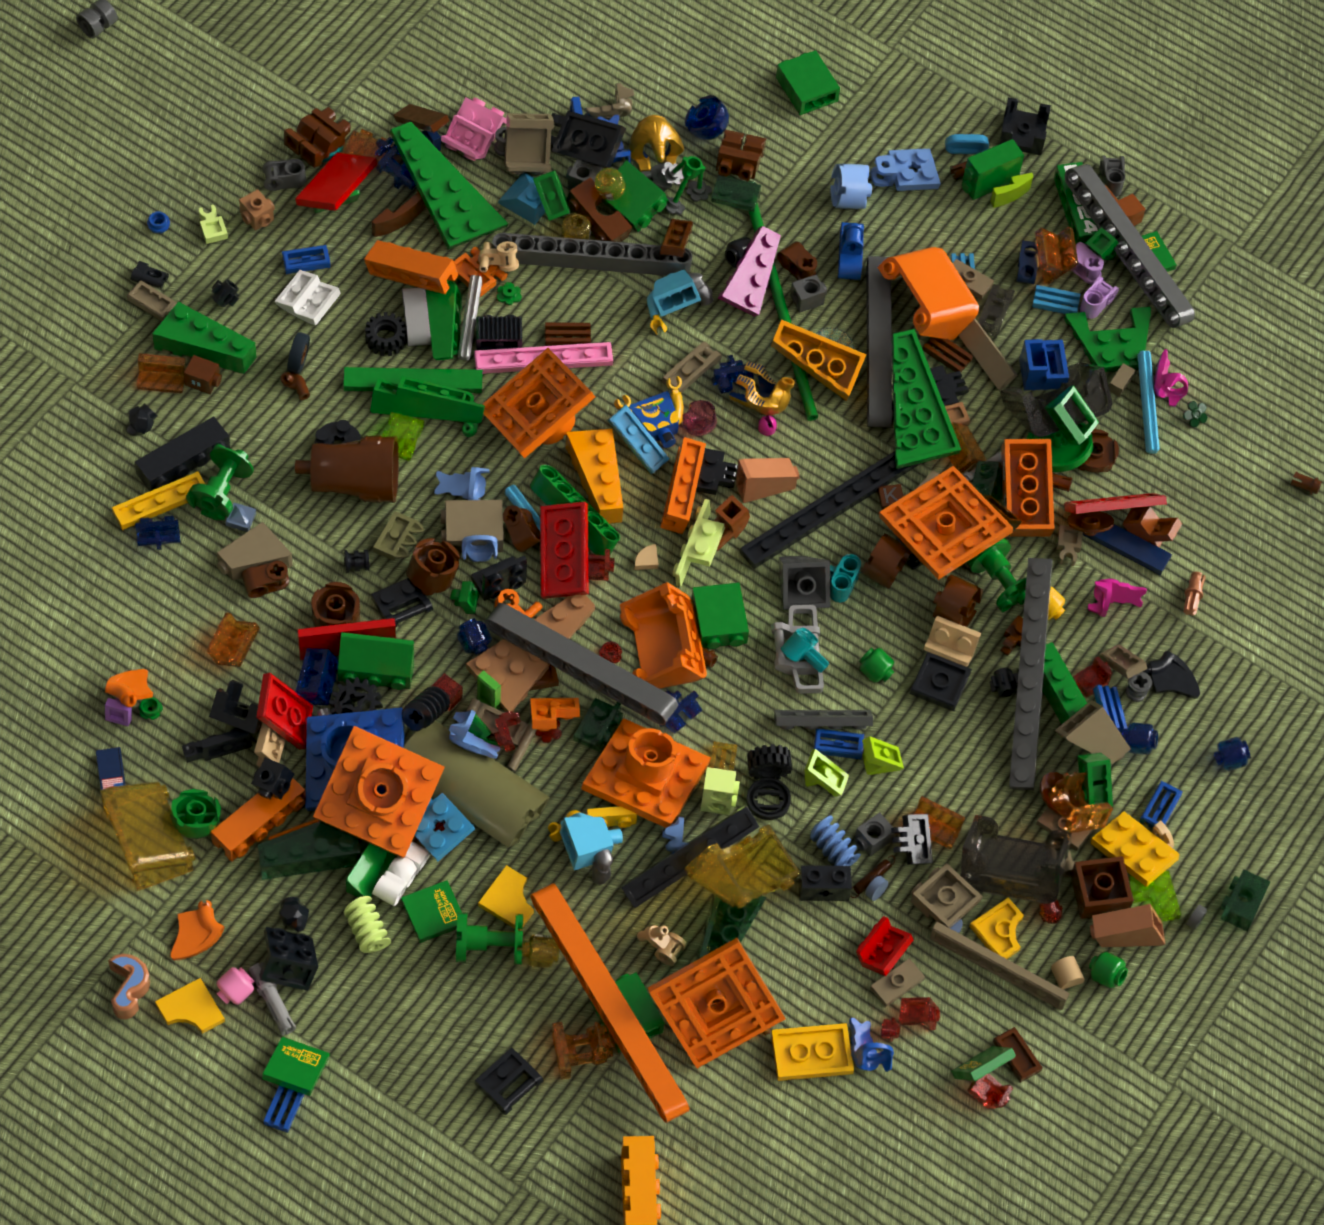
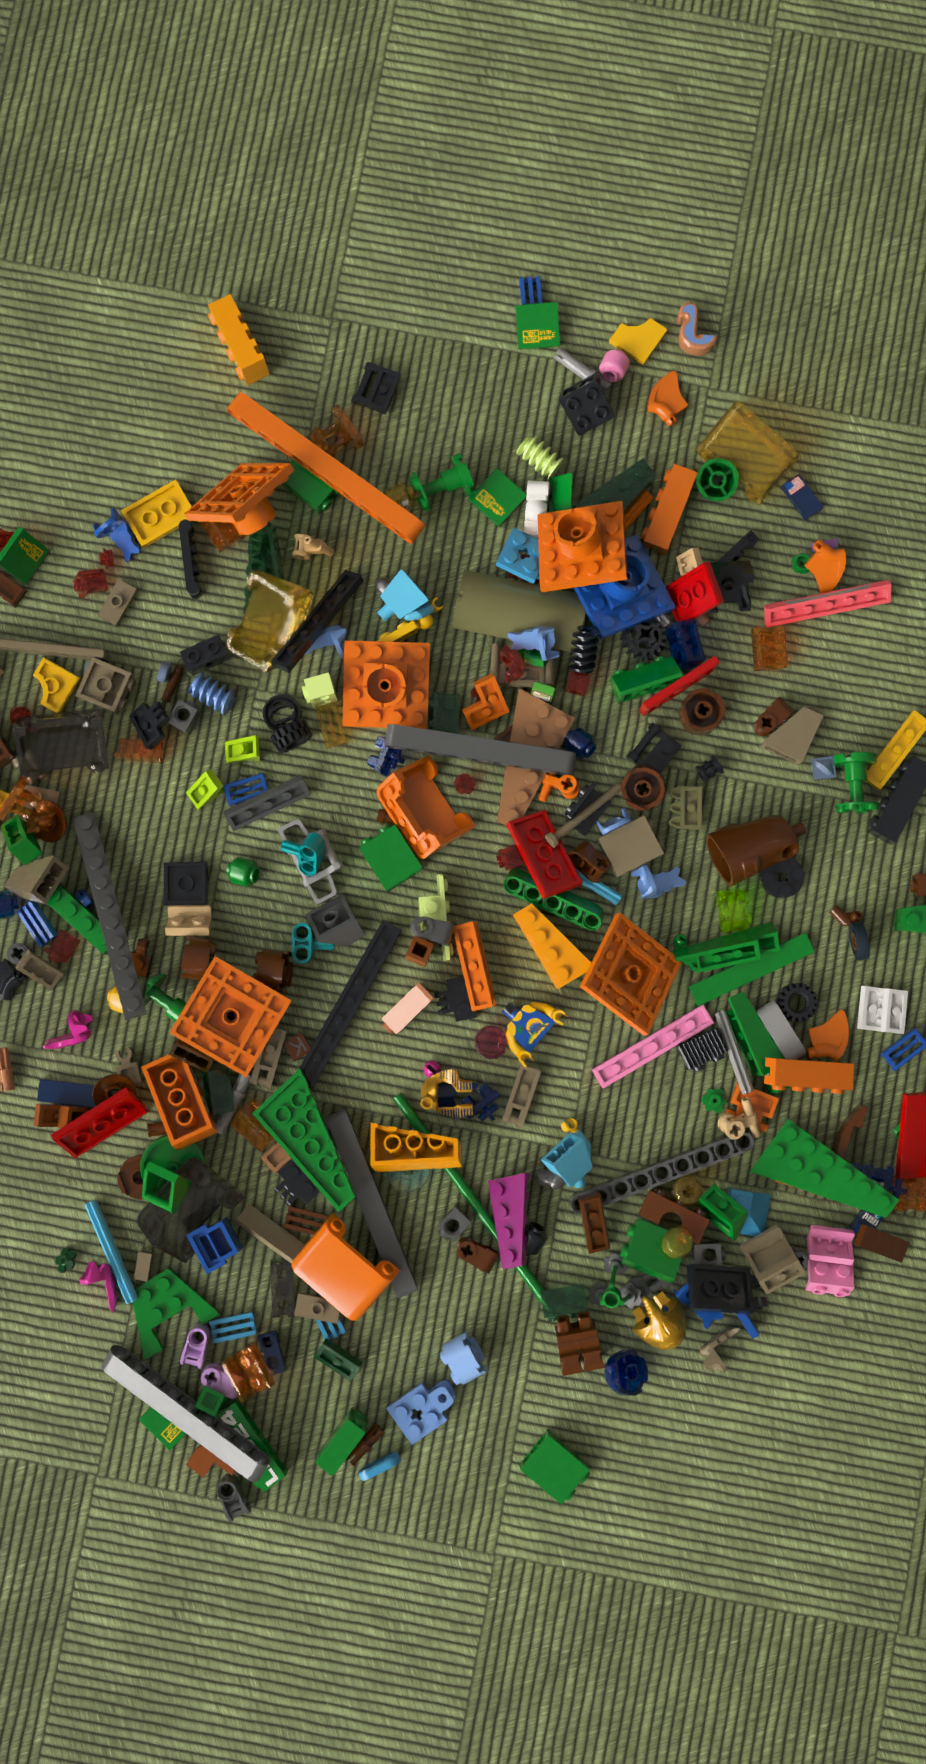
camera: 165 degrees right, 25 degrees up
(141, 656) = (827, 603): none -> coral plate
(157, 532) = (879, 716): clear blue hips -> none
(272, 779) = (671, 526): black brick -> none
(294, 913) = (600, 441): black rock -> none
(371, 295) = (830, 1038): none -> orange arm
(466, 597) = (603, 777): green tile -> none
(506, 897) = (447, 533): yellow tile -> none
(531, 559) = (553, 838): none -> dark tan bar
(567, 330) = (660, 1072): reddish brown tile -> none
(638, 439) = (532, 992): dark azure tile -> none
(647, 558) = (475, 888): tan tile -> none
(711, 520) = (436, 930): none -> dark grey piece
(802, 978) = (189, 549): none -> black plate
(850, 251) = (436, 1289): blue piece -> none
(883, 947) = (137, 623): red bracket -> none
(968, 235) = (338, 1359): none -> dark green plate
(1004, 682) = (131, 904): black gear -> none
(1017, 188) = (315, 1436): lime slope -> none
(1025, 128) = (334, 1512): black panel -> none
(1051, 710) = (84, 898): none -> blue tile

